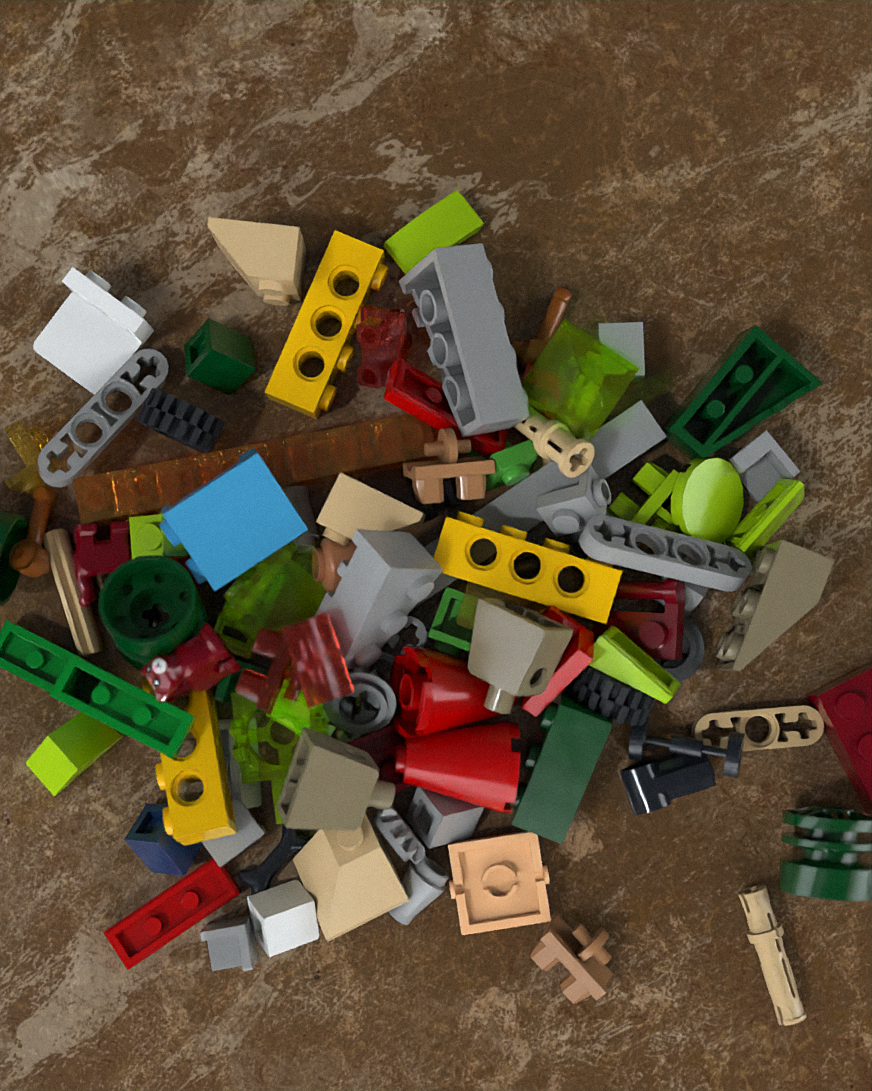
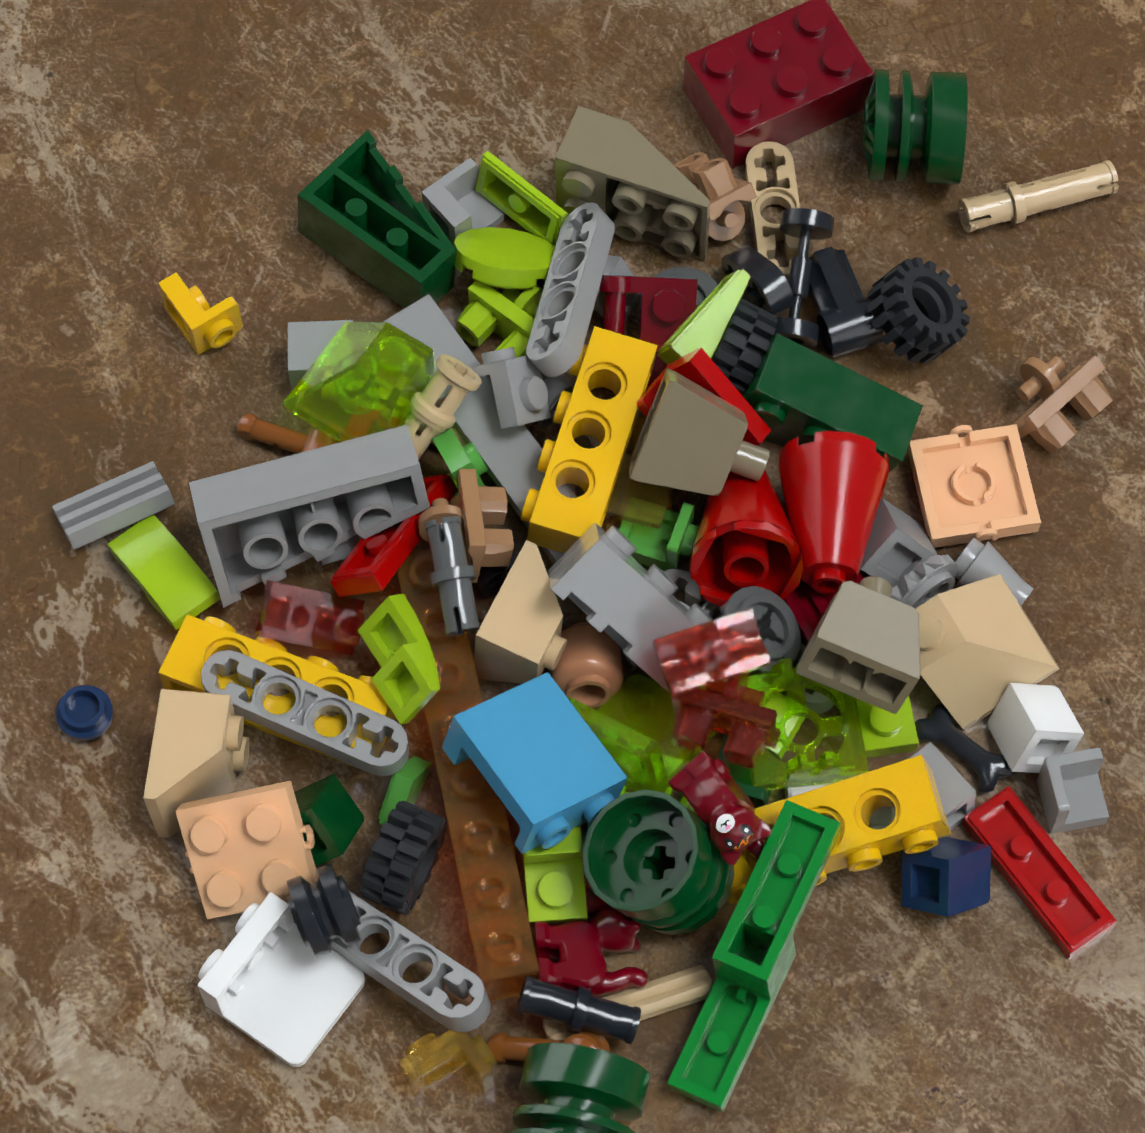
camera: 90 degrees left, 20 degrees down
(56, 553) = (578, 1010): none -> black pin
(71, 751) = (839, 1001): lime slope -> none
(128, 359) = (323, 910): none -> black wheel
(188, 304) = (246, 846): none -> light nougat plate
(246, 423) = (405, 785): none -> bright green tile
(287, 340) = (309, 705): none -> light grey beam
(317, 179) = (84, 713): none -> dark blue plate
(319, 423) = (406, 660): none -> lime slope
(393, 454) = (452, 576): none -> dark grey pin
(496, 191) = (113, 505): none -> light grey tile
(650, 827) = (918, 310): none -> black tyre
(662, 244) = (198, 322): none -> yellow bracket
(683, 711) = (767, 283): none -> black beam
(769, 675) = (723, 191): none -> medium nougat hips

